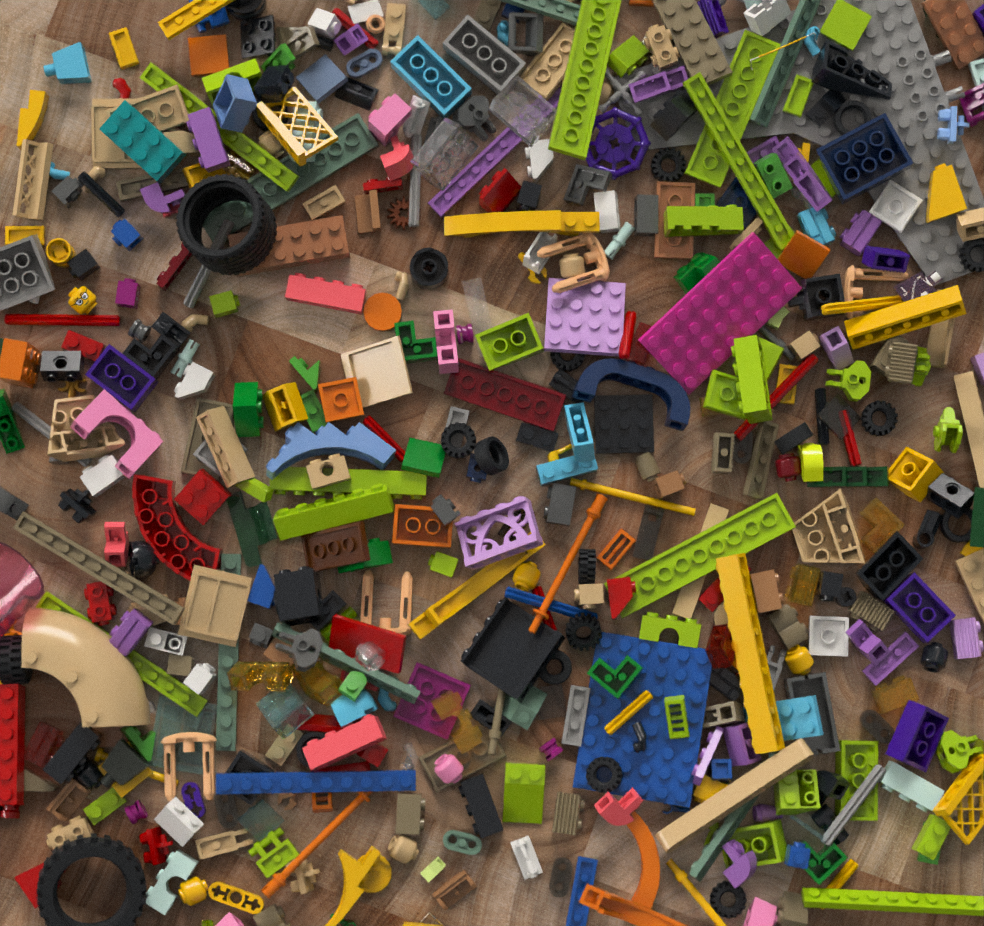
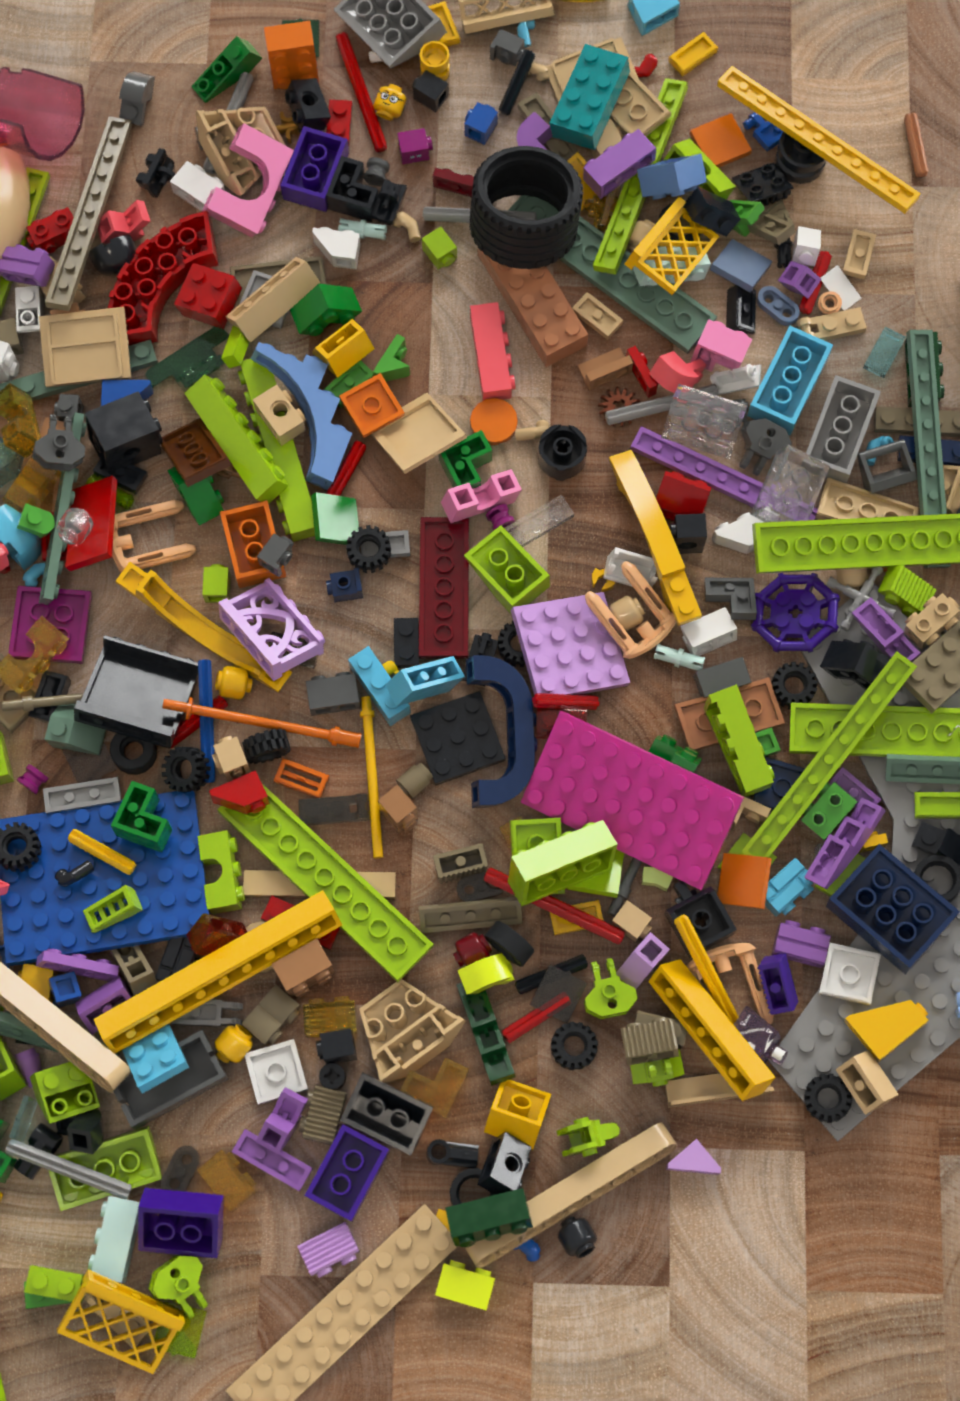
camera: 75 degrees right, 10 degrees down
(484, 459) = (373, 602): black tyre -> none
(934, 657) = (291, 1216): black head -> none

